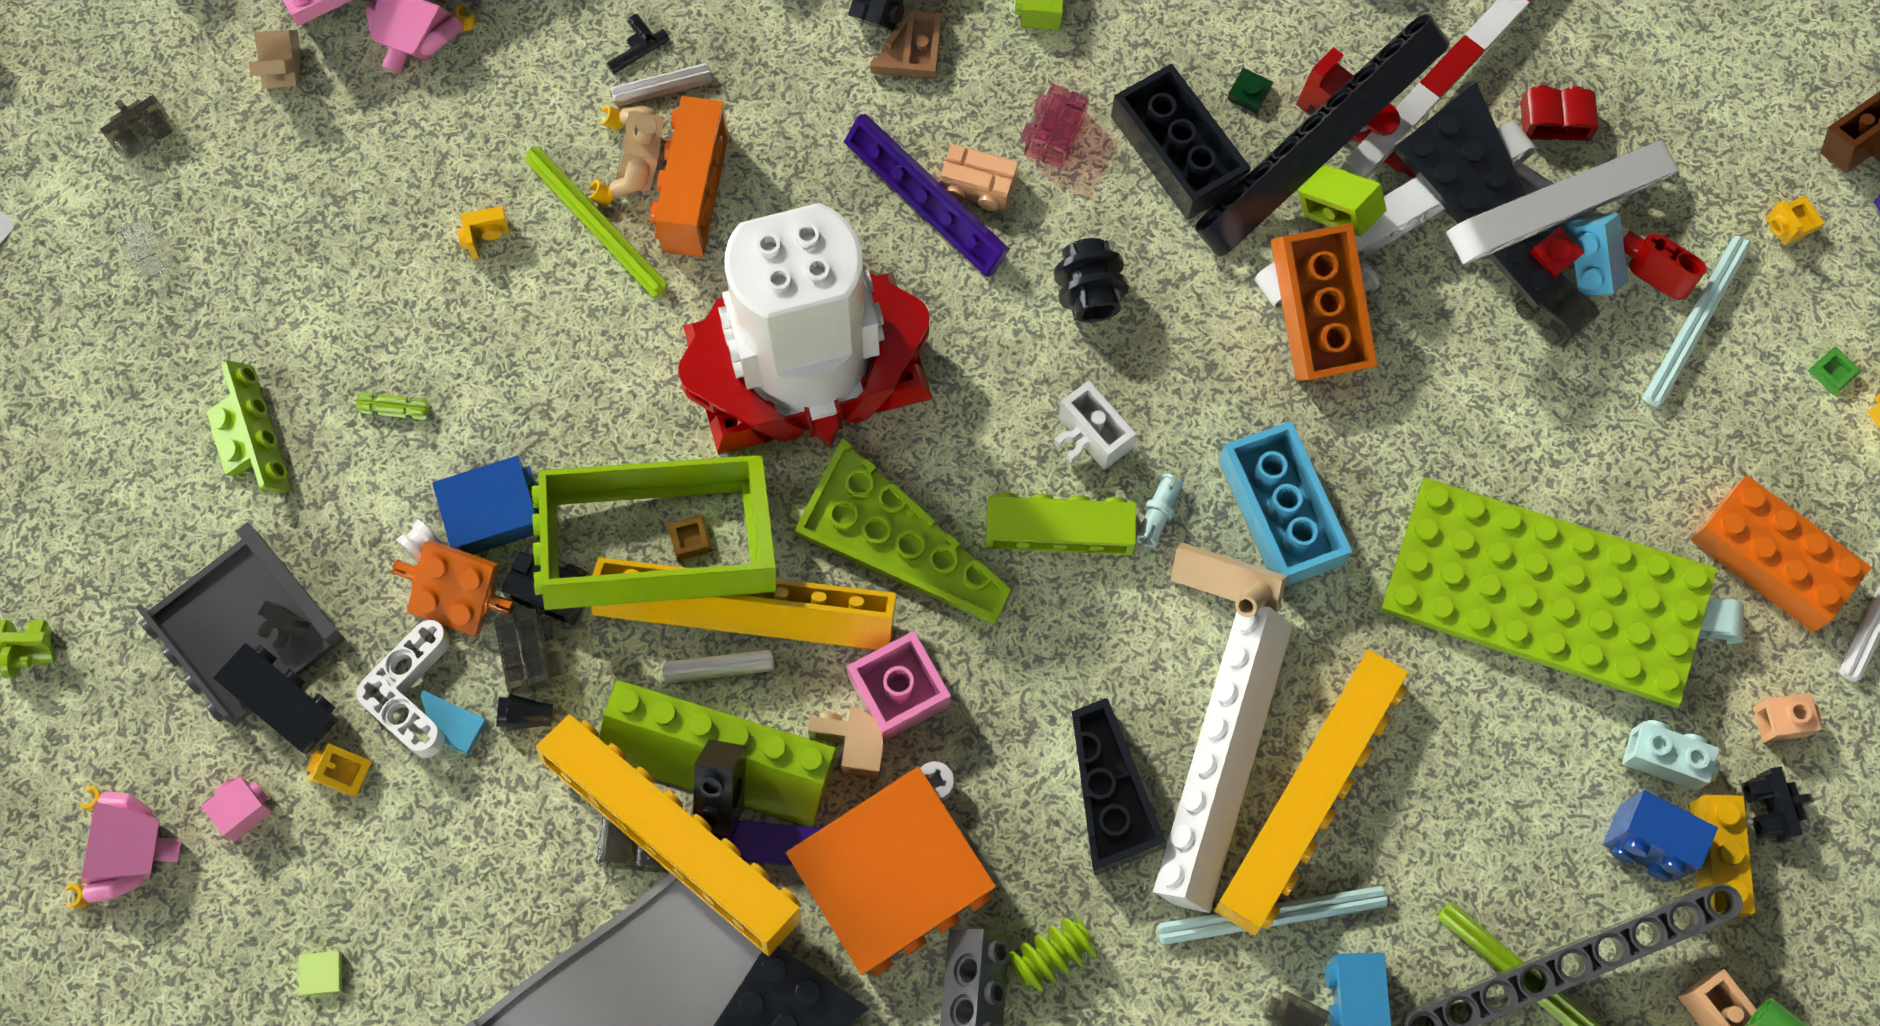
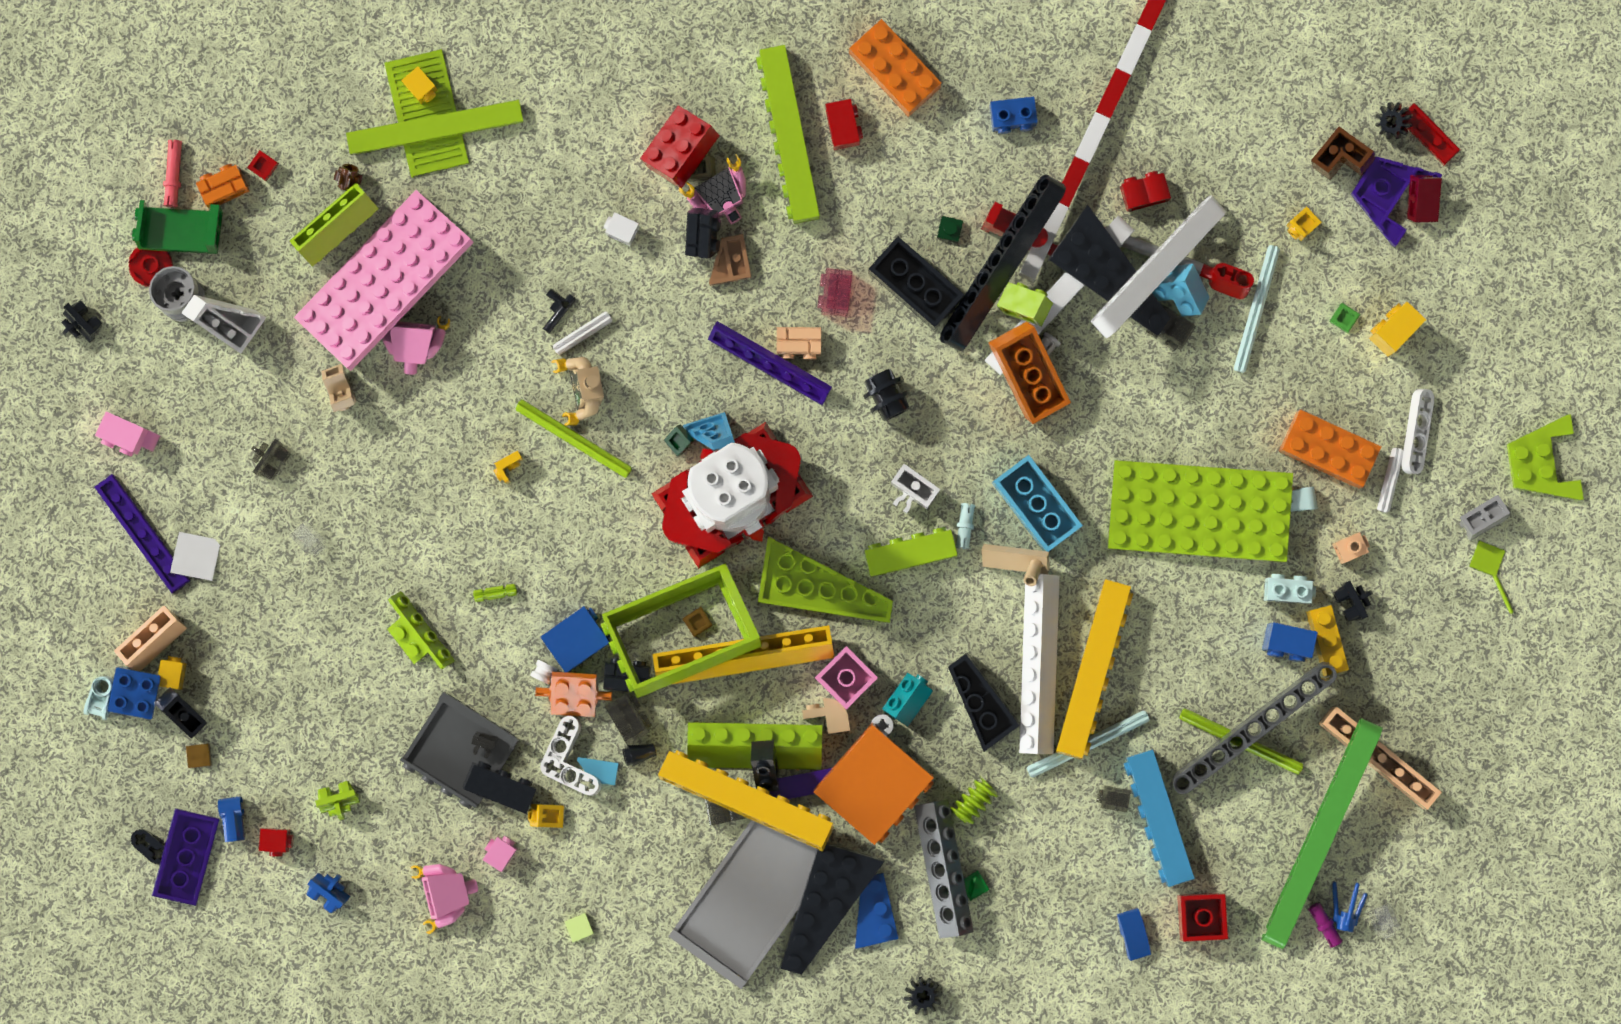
camera: 15 degrees left, 15 degrees up
(690, 176) = (626, 398): orange brick -> none
(718, 666) = (739, 693): white axle -> none
(990, 750) = (908, 699): none -> teal brick
(1556, 252) = (1160, 302): red plate -> none

